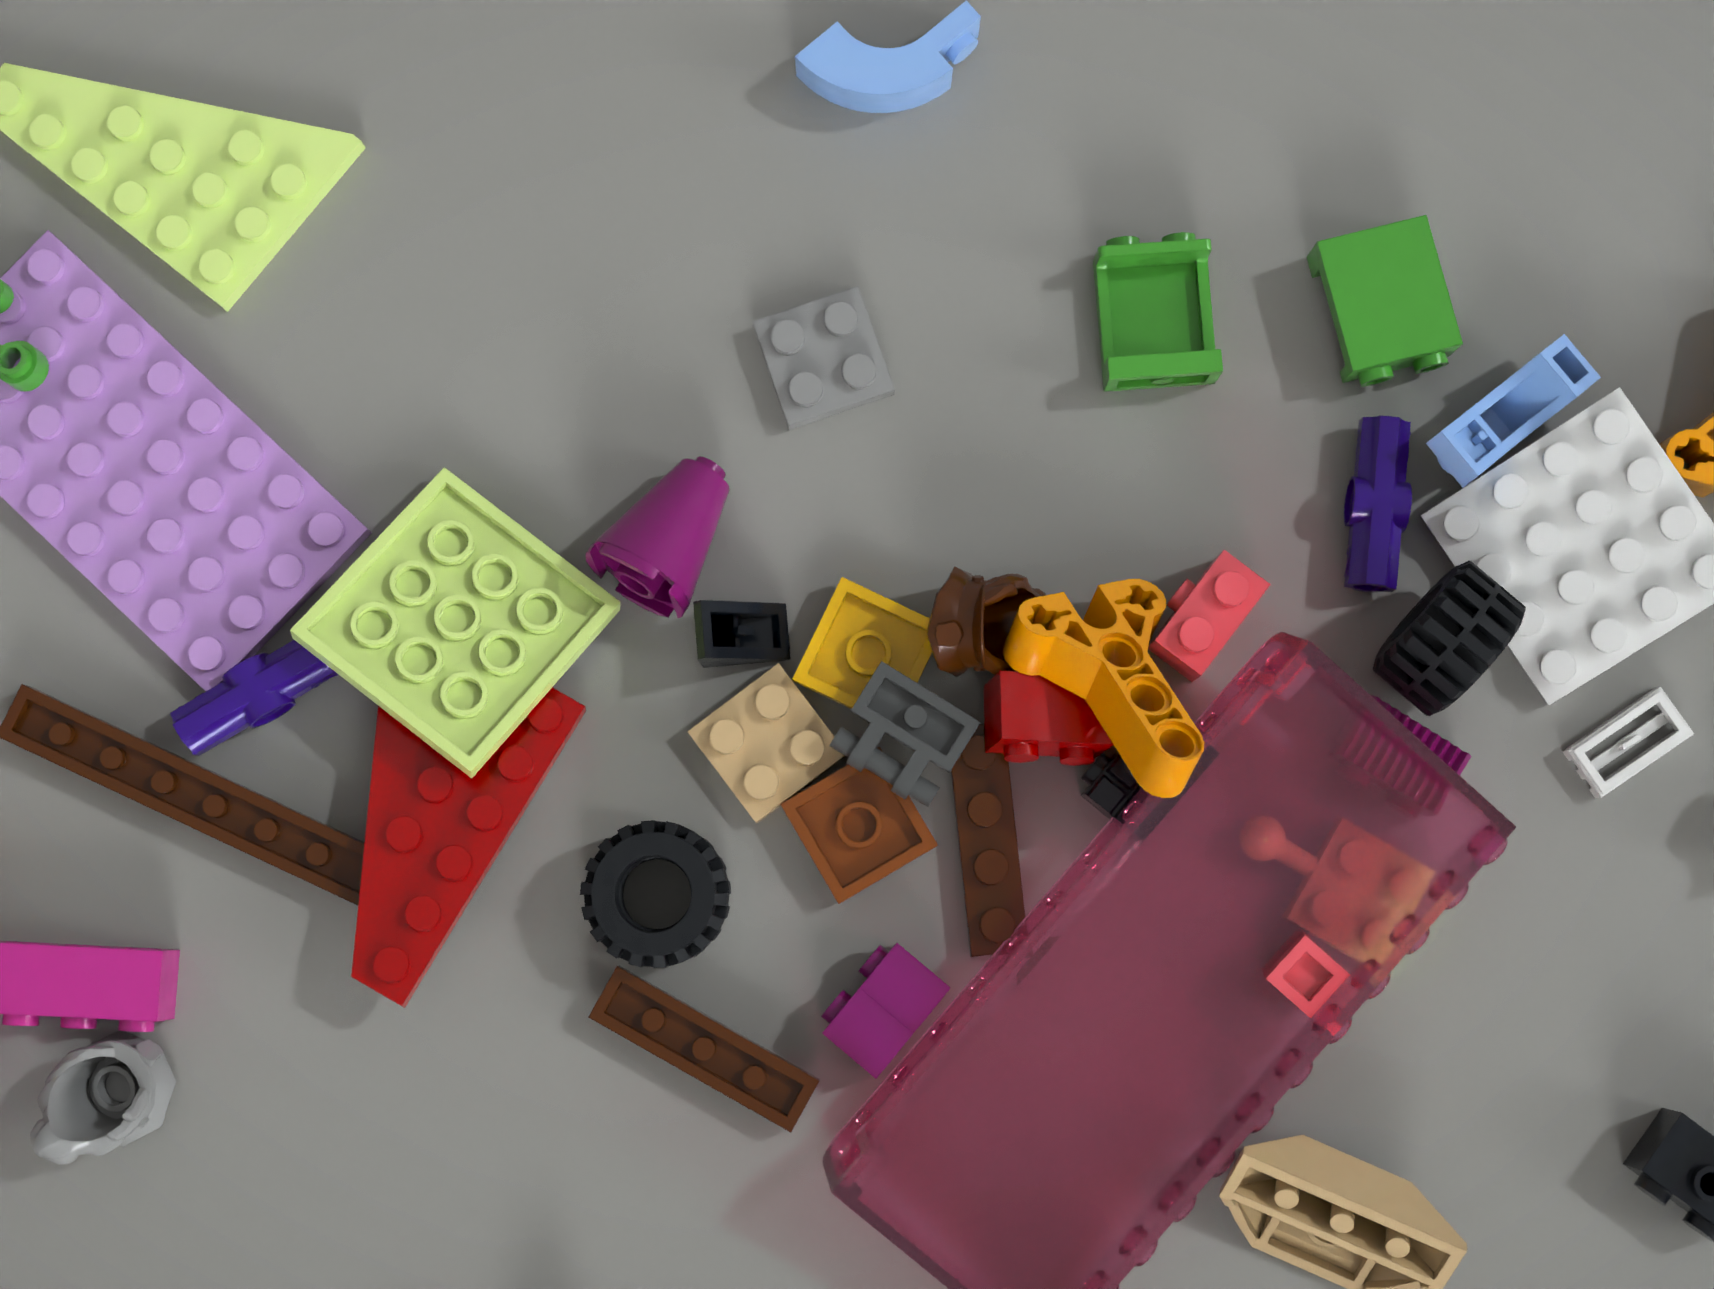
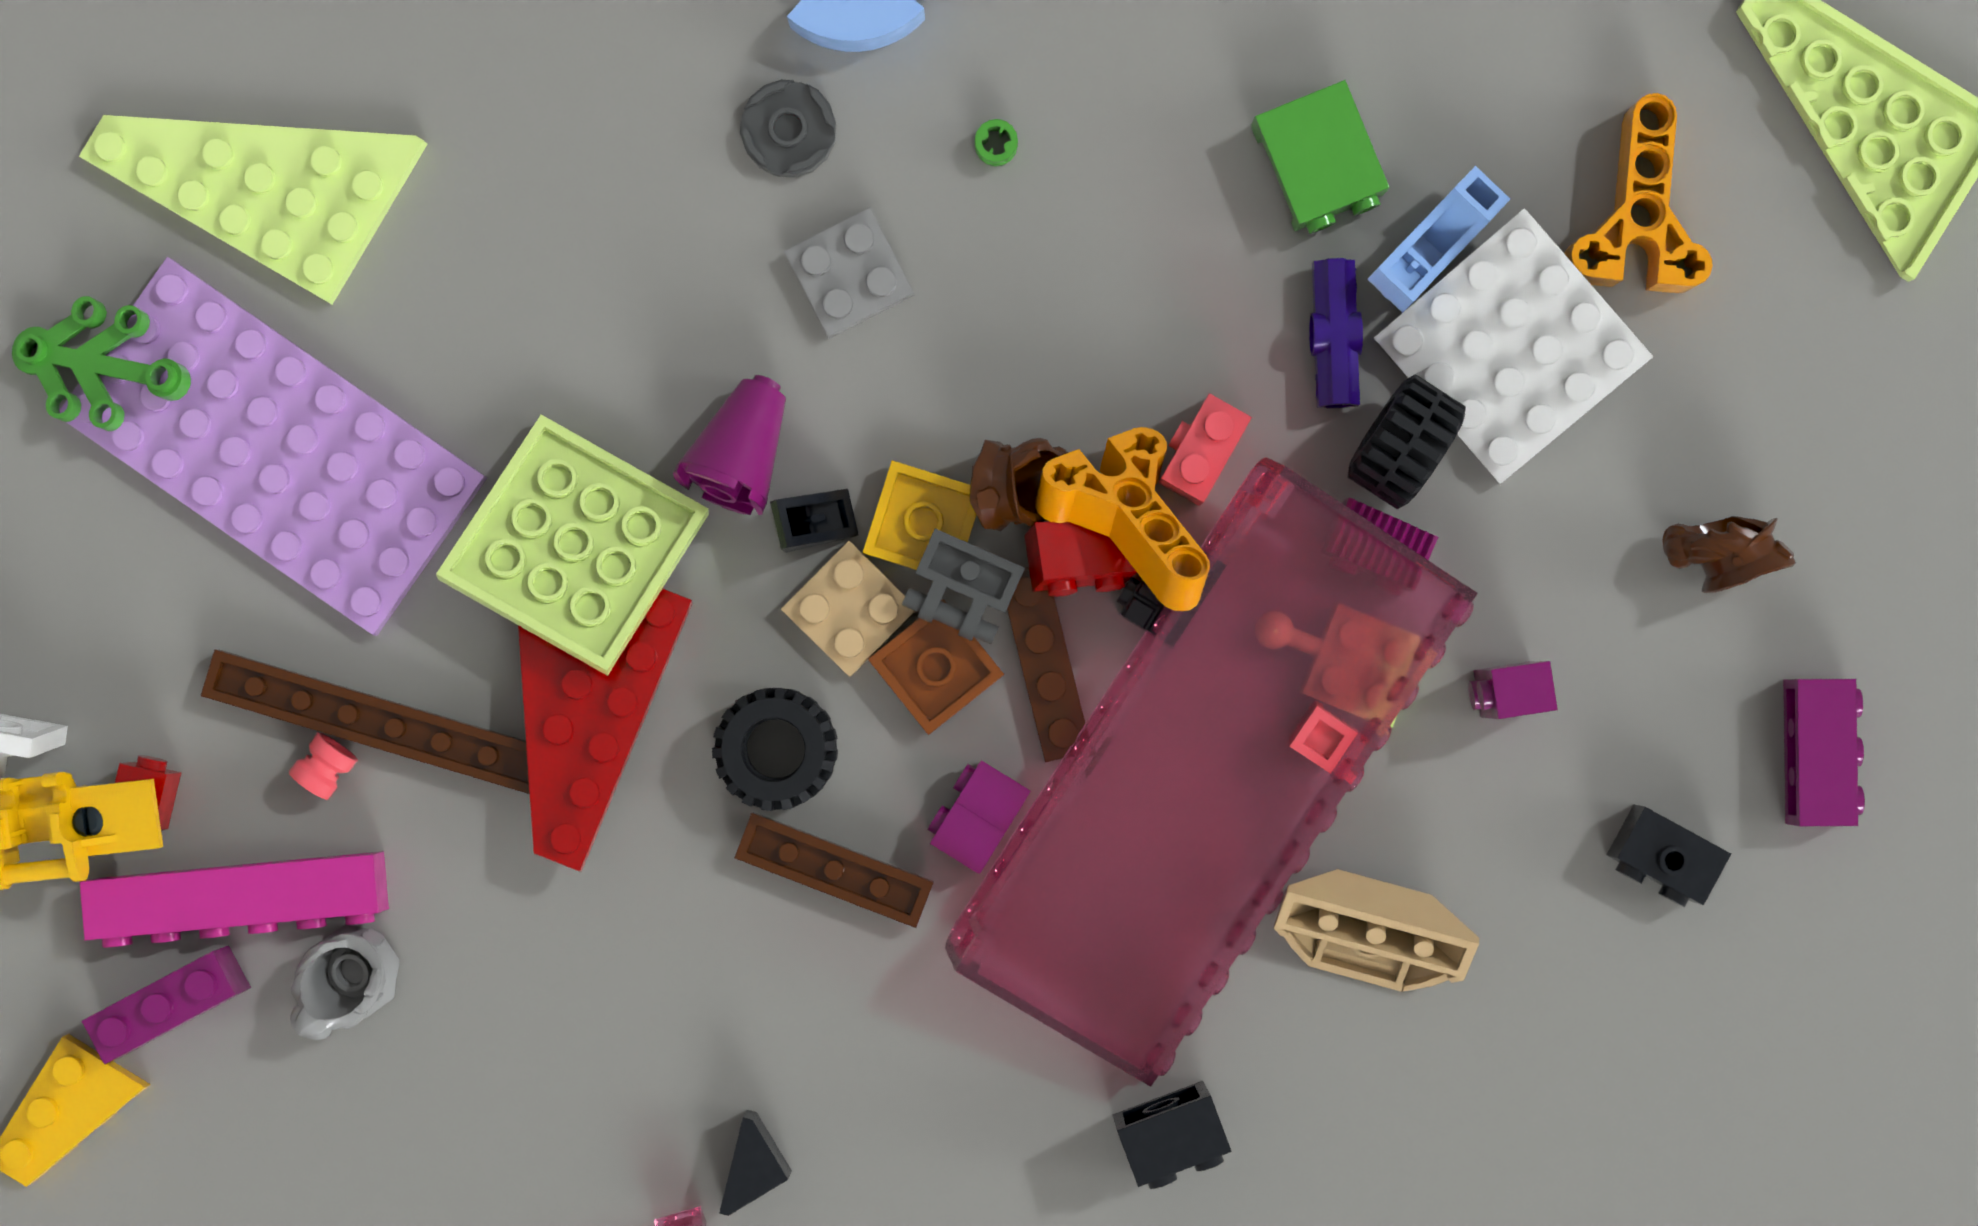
camera: 10 degrees left, 5 degrees up
(119, 844) = (320, 770): none -> coral wheel
(249, 696) = (408, 632): dark purple piece -> none
(777, 186) = (788, 128): none -> dark grey tile
(1025, 219) = (982, 138): none -> bright green bush
(1155, 313) = (1127, 195): bright green panel -> none
(1541, 950) = (1513, 690): none -> magenta brick
(1589, 769) = (1539, 532): white tile -> none

